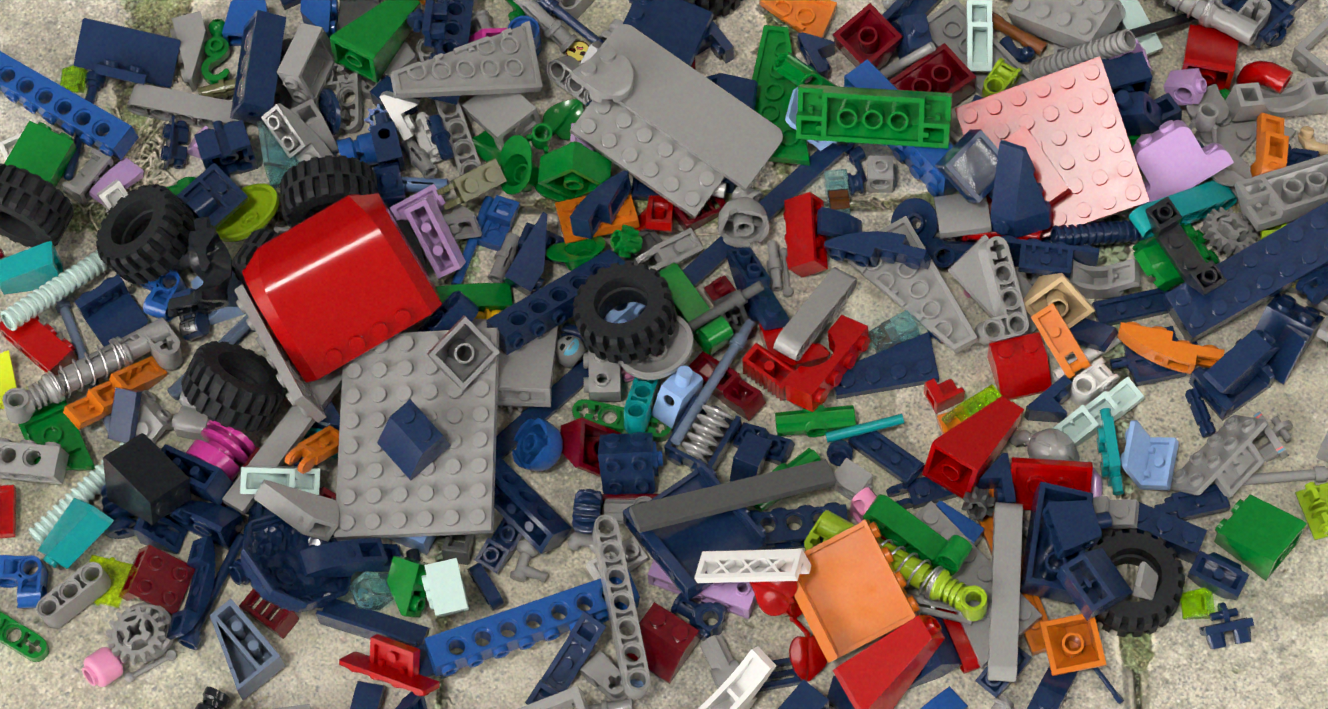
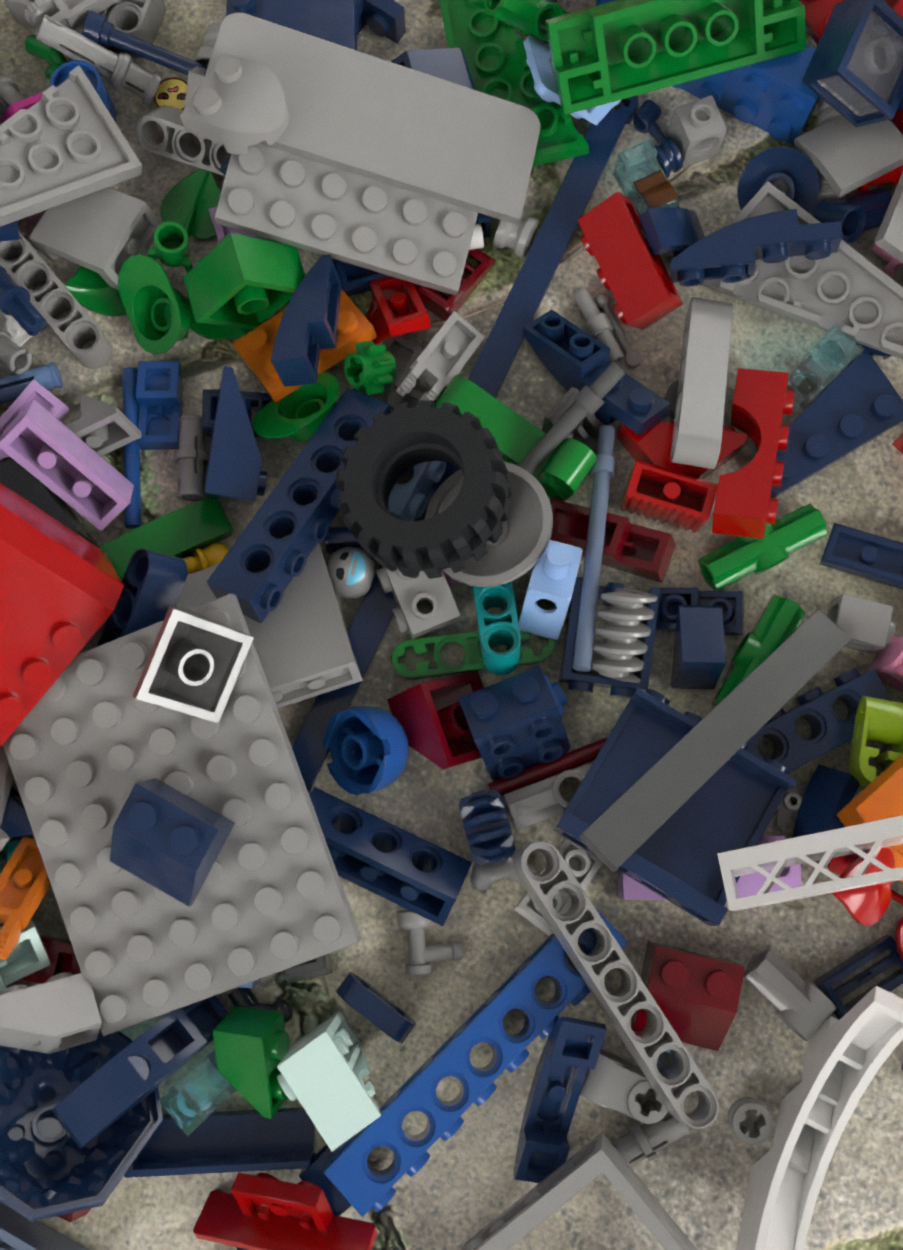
camera: 25 degrees left, 15 degrees up
(473, 183) = (95, 357): olive hinge -> none
(500, 547) = (375, 923): dark blue slope -> none
(699, 613) = (724, 936): dark blue connector -> none
(718, 288) = (536, 395): dark red tile -> none
(742, 222) = (534, 273): light grey cylinder -> none
(839, 451) = (818, 583): dark blue plate -> none
(864, 428) = (843, 533): teal bar -> none

